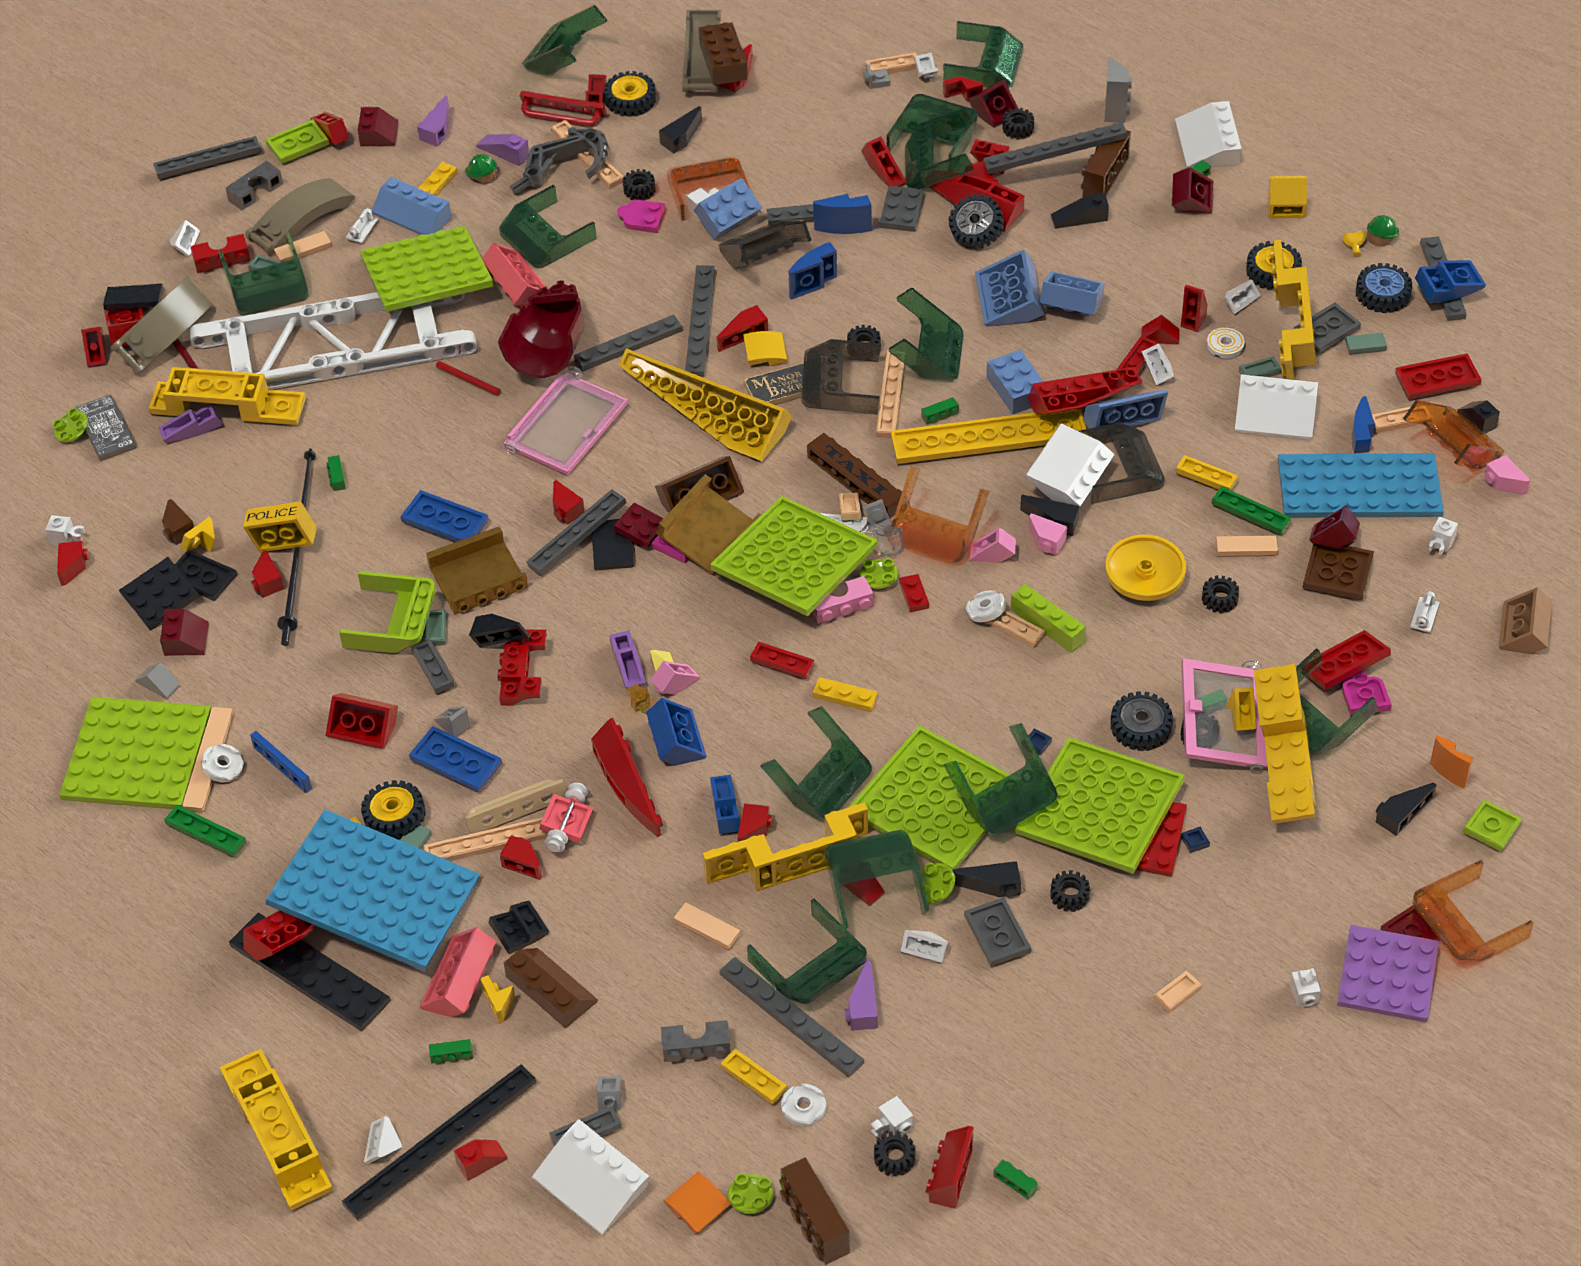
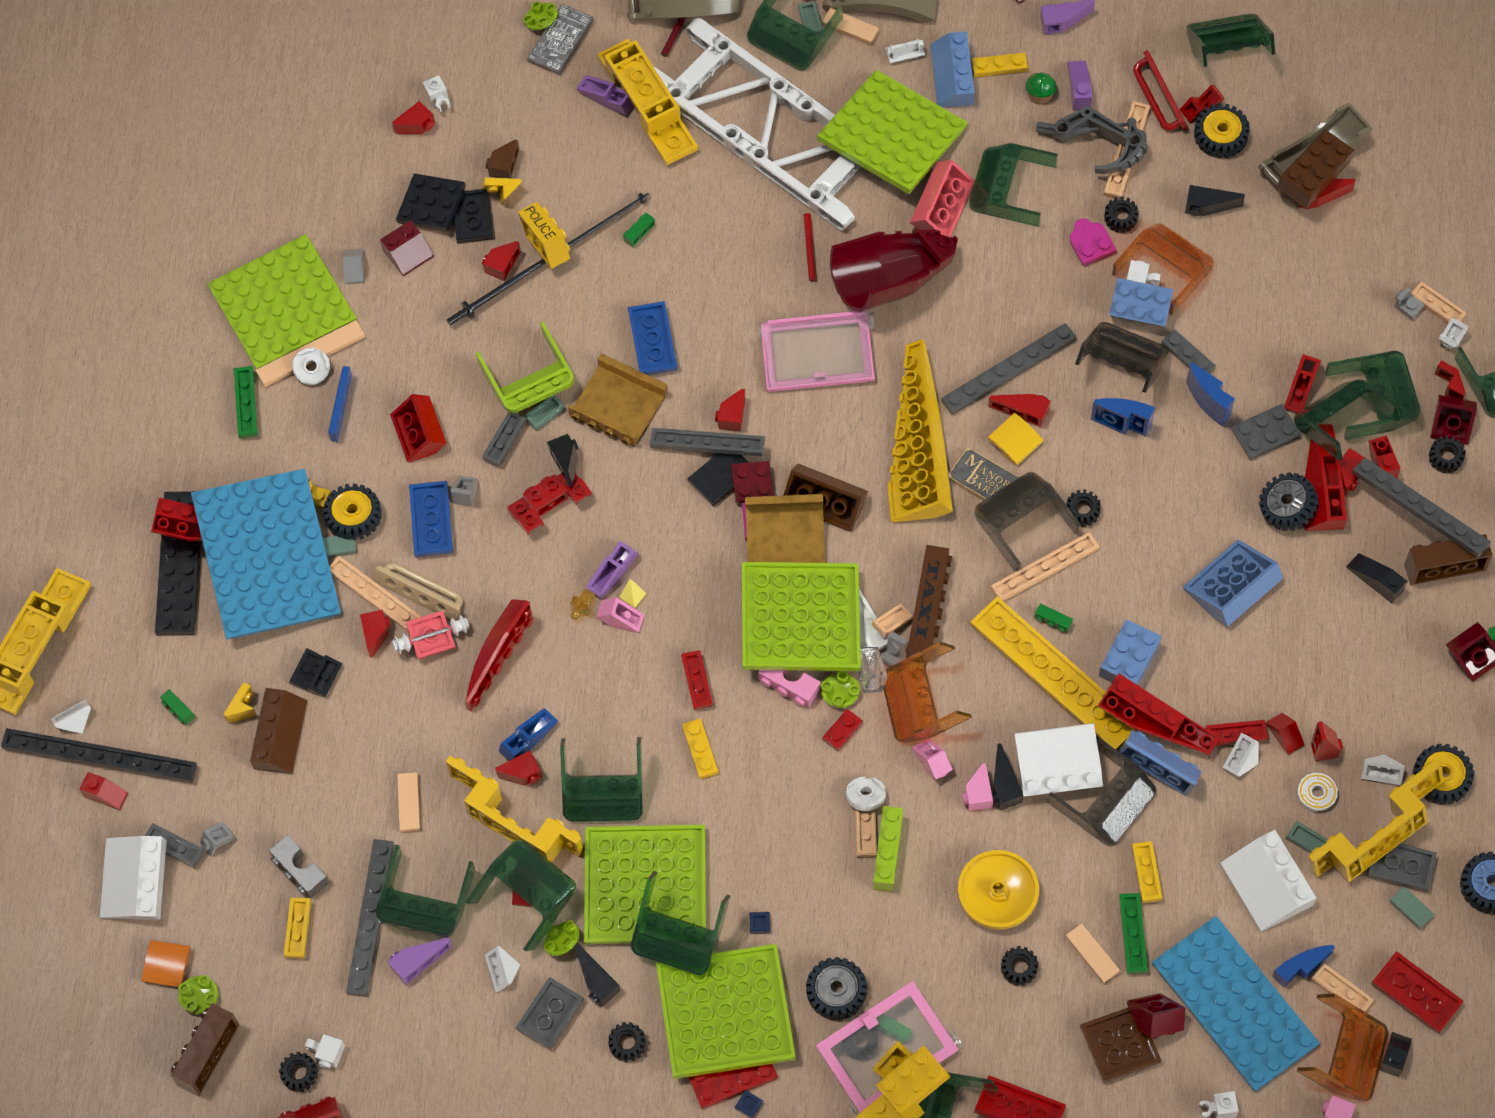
camera: 55 degrees right, 15 degrees up
(458, 973) = (243, 663): coral slope -> none
(633, 340) = (941, 334): dark grey plate -> none
(675, 733) = (567, 654): blue slope -> none
(807, 1116) = (303, 990): white tile -> none
(939, 340) = (1121, 569): clear green windscreen -> none
(1072, 293) = (1264, 633): medium blue brick -> none

